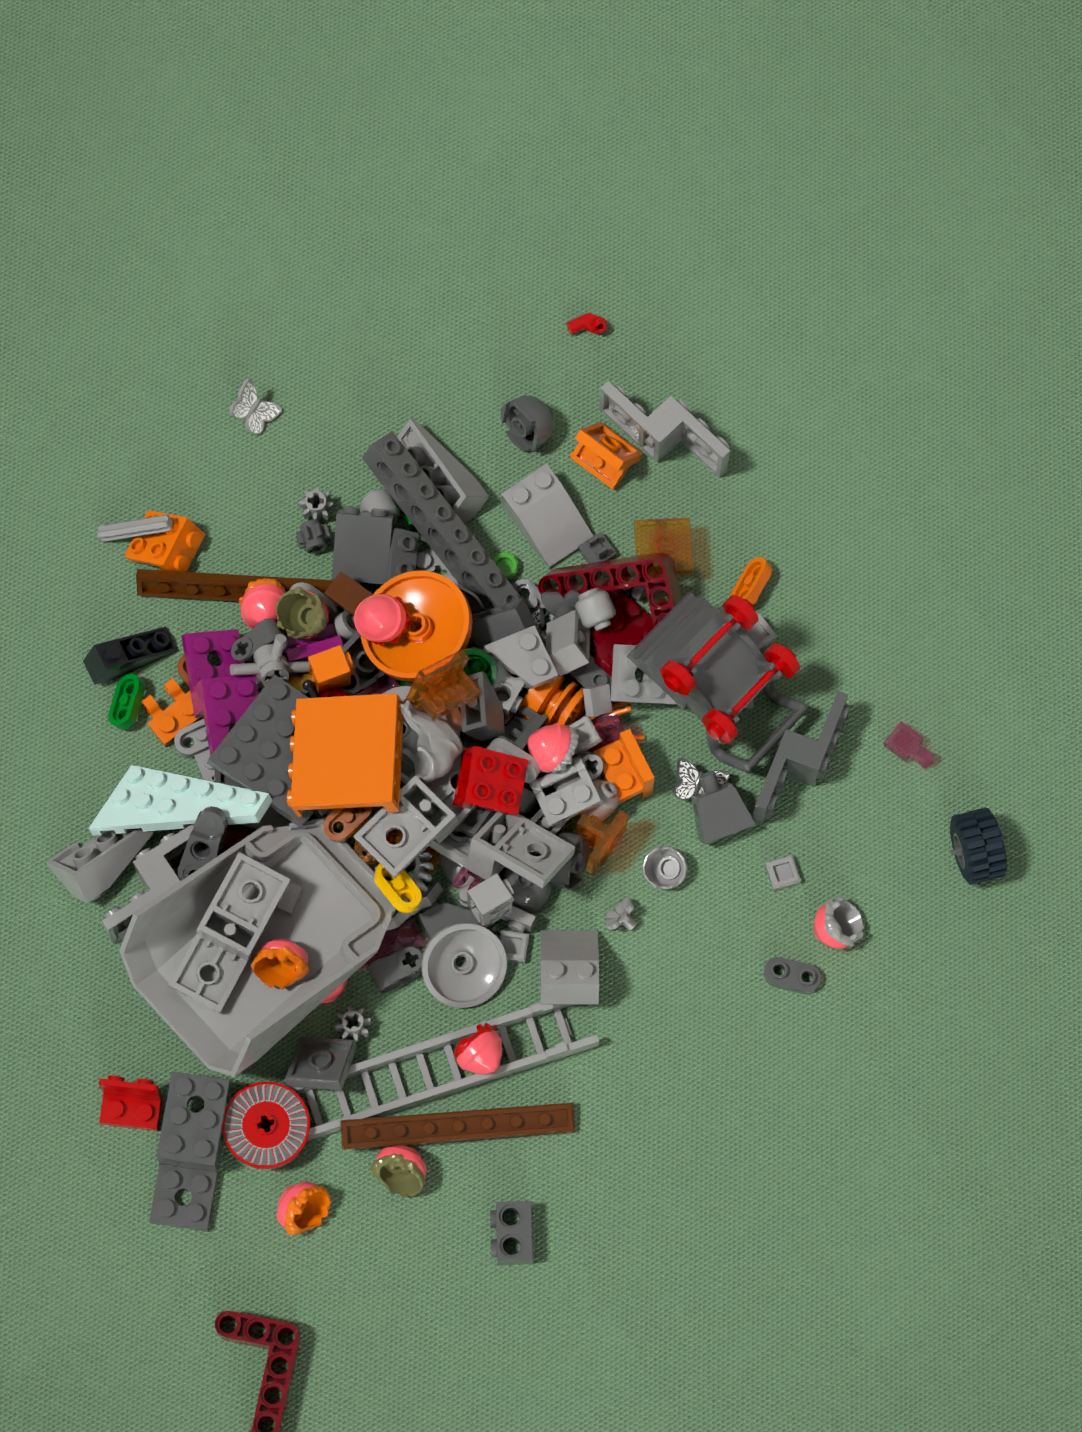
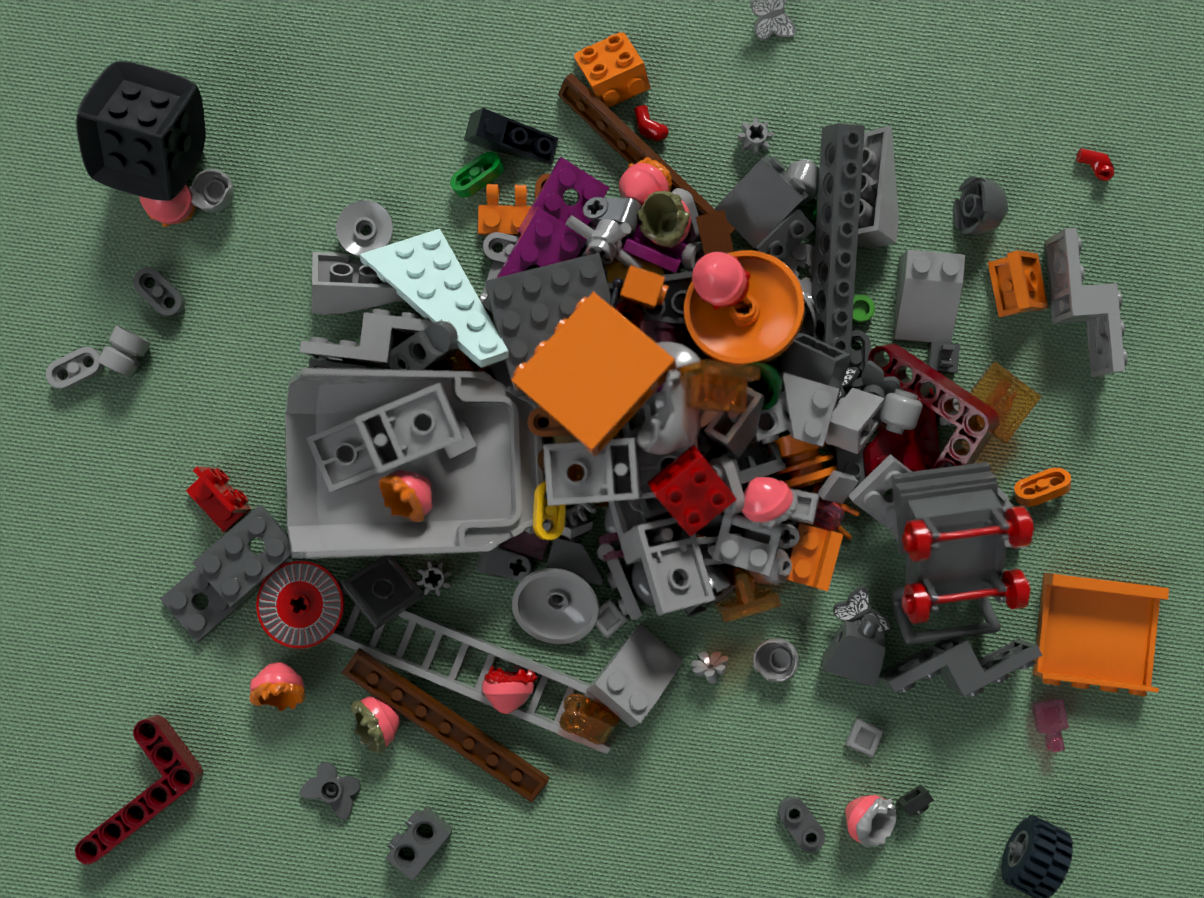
camera: 45 degrees right, 15 degrees up
(68, 798) = (361, 215): none -> light grey dish
(135, 528) = (598, 37): light grey axle -> none
(229, 563) = (648, 127): none -> red arm
(313, 536) = (731, 160): dark grey gear -> none
(411, 1253) = (332, 789): none -> dark grey animal
(490, 900) = (614, 582): light grey brick -> none
(564, 1025) = (589, 721): none -> clear orange piece
(861, 884) = (915, 801): none -> pearl dark grey plate
(884, 652) = (1098, 633): none -> orange panel

